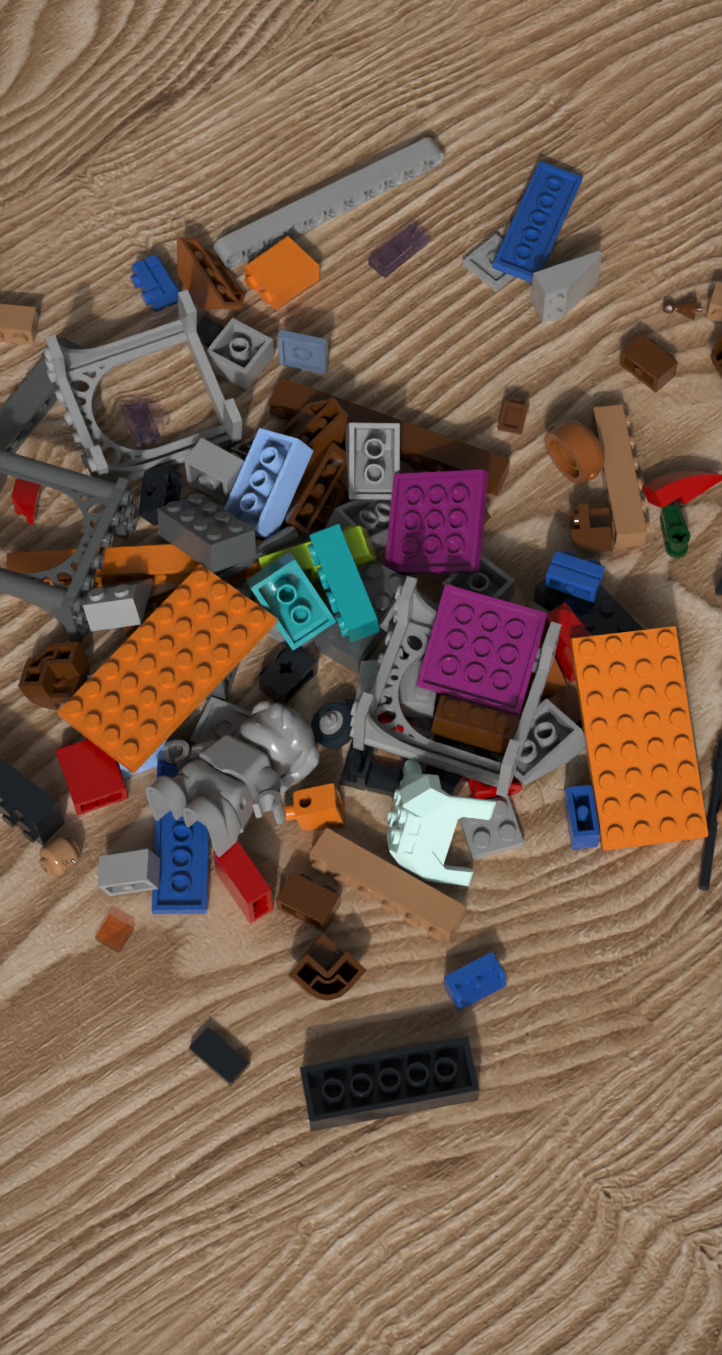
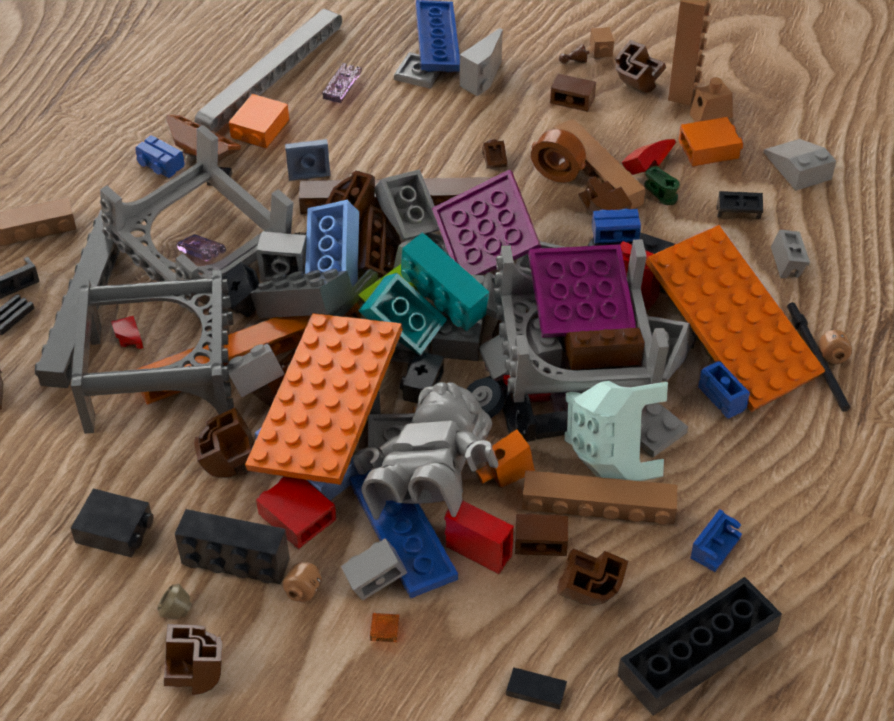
camera: 25 degrees left, 15 degrees down
(240, 353) = (258, 175): light grey brick -> none

